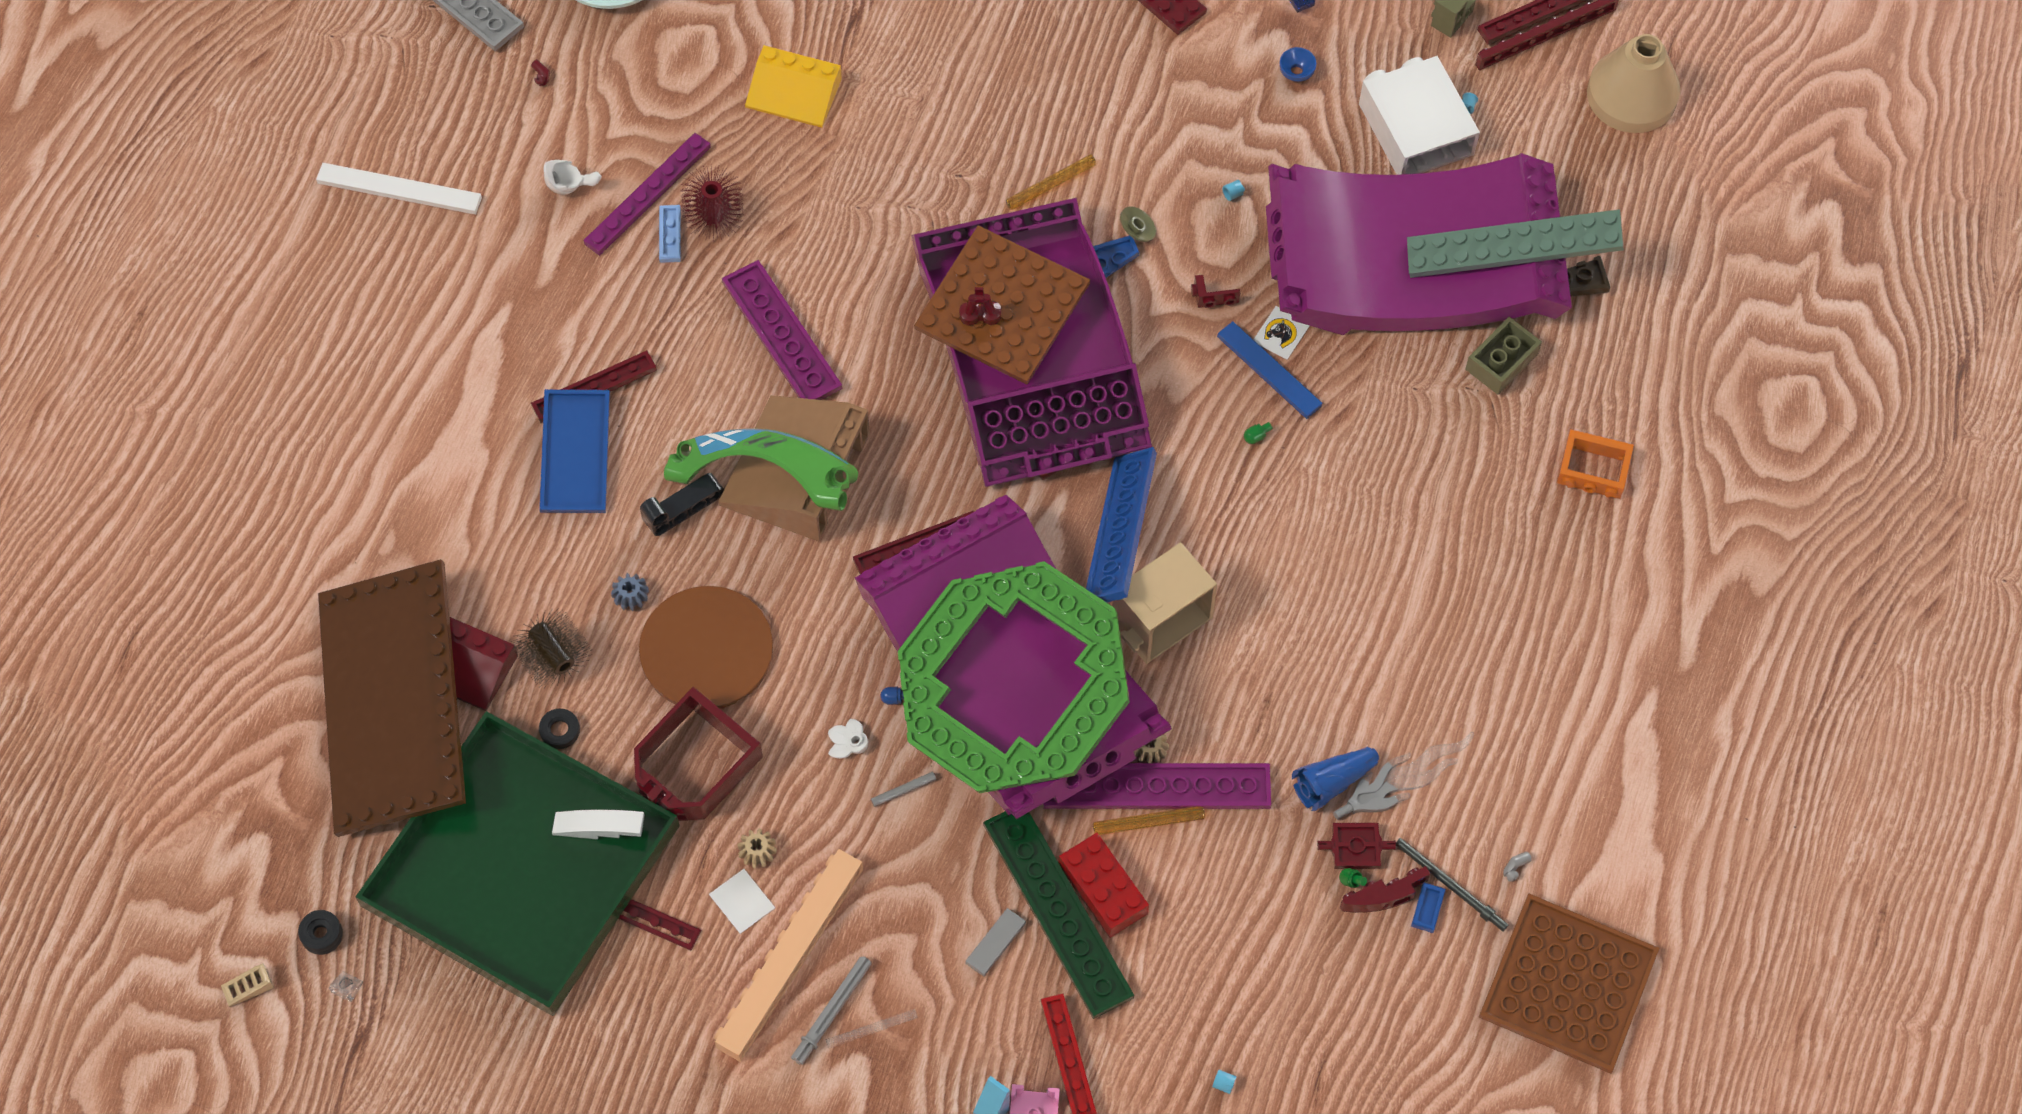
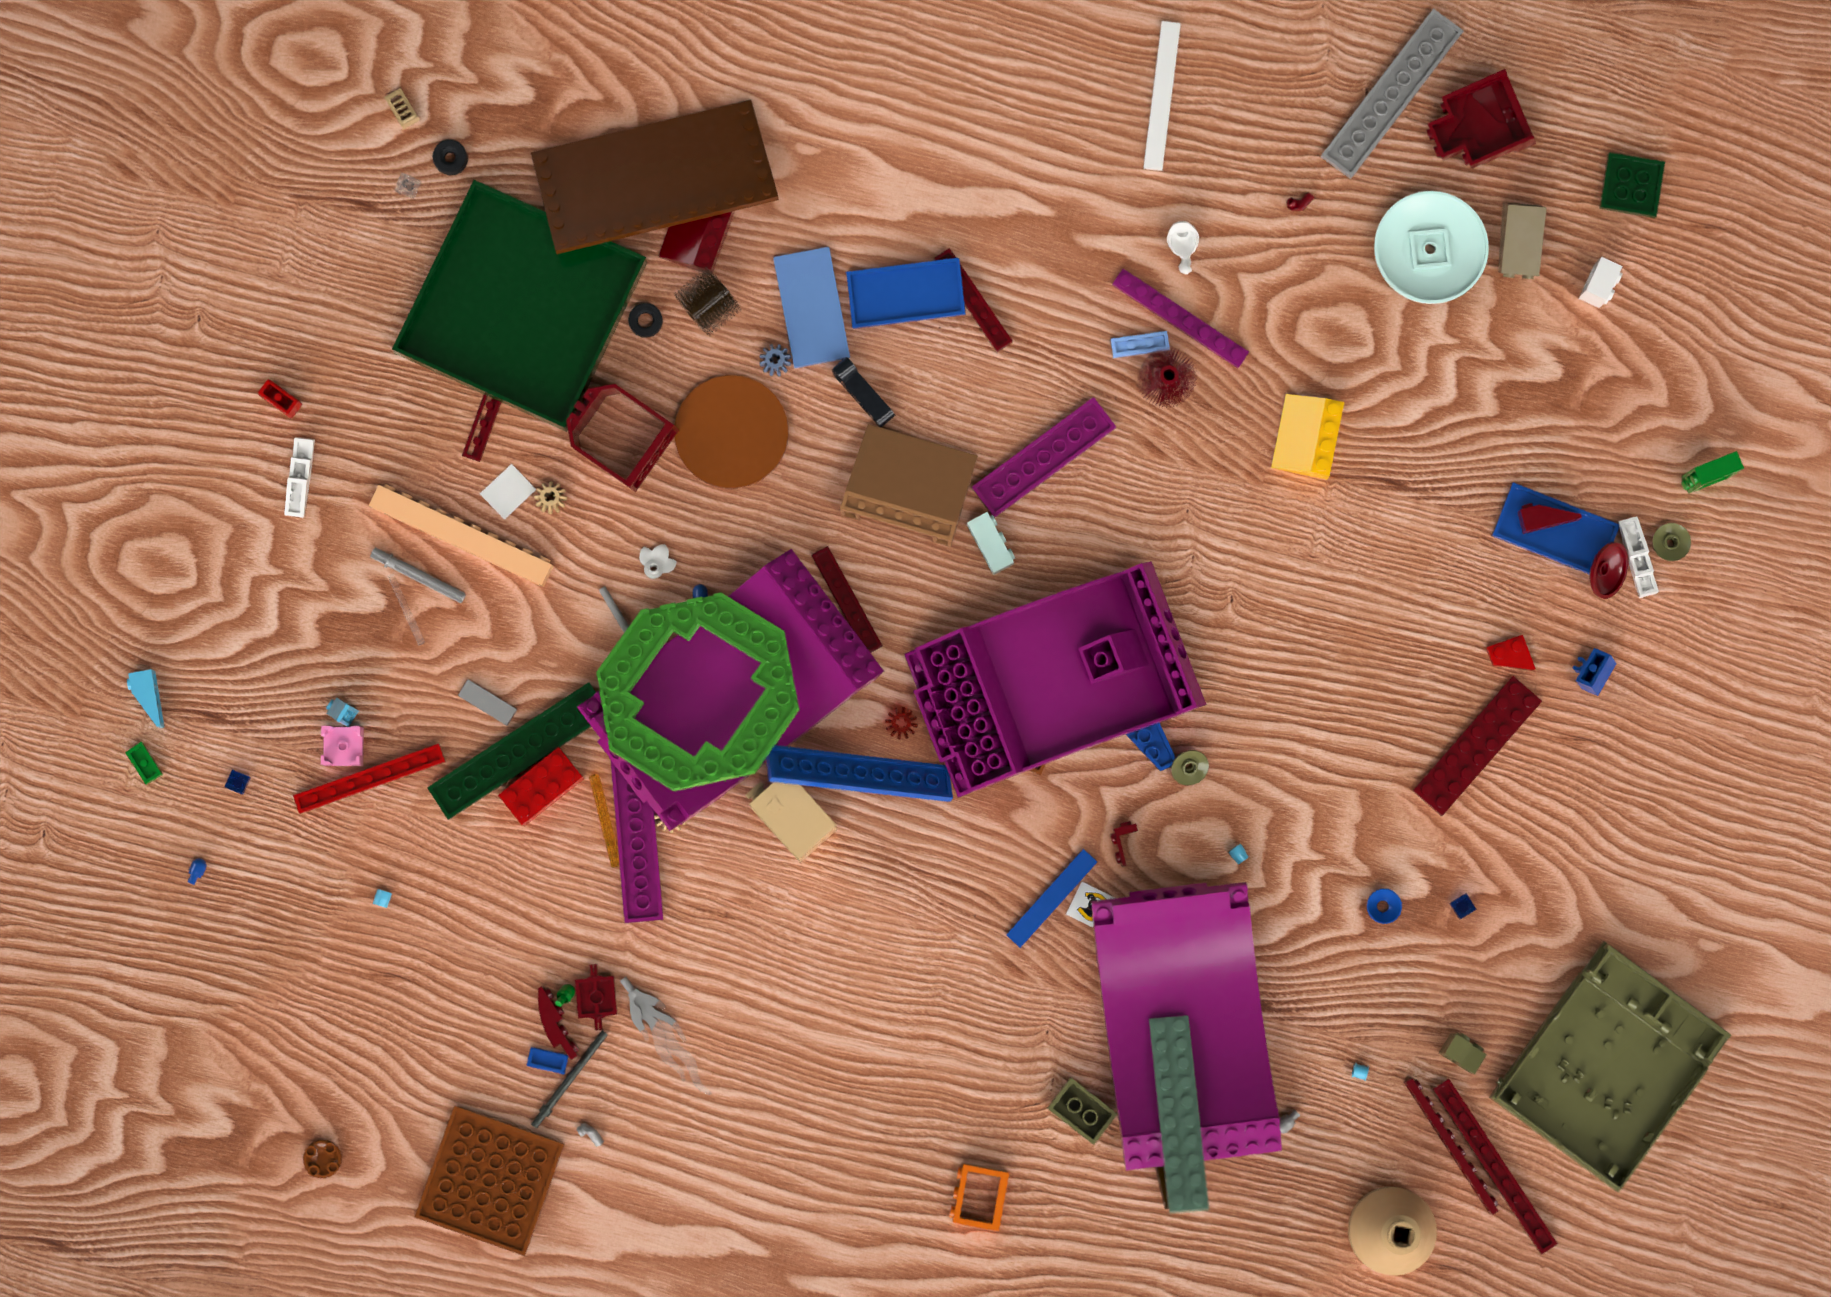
camera: 85 degrees right, 20 degrees up
(573, 551) = (811, 307): none -> medium blue tile
(598, 823) = (555, 364): white slope -> none
(809, 463) = (892, 490): bright green panel -> none
(873, 390) = (991, 543): none -> light aqua brick
(988, 312) = (1046, 623): dark red piece -> none
(1033, 299) = (1064, 648): dark orange plate -> none
(1050, 182) = (1231, 684): clear yellow axle -> none
(1067, 504) = (895, 727): none -> clear red gear
(1256, 433) = (984, 890): green cylinder -> none
(1332, 776) = (654, 974): blue cone -> none
(1418, 116) = (1334, 1022): white brick -> none

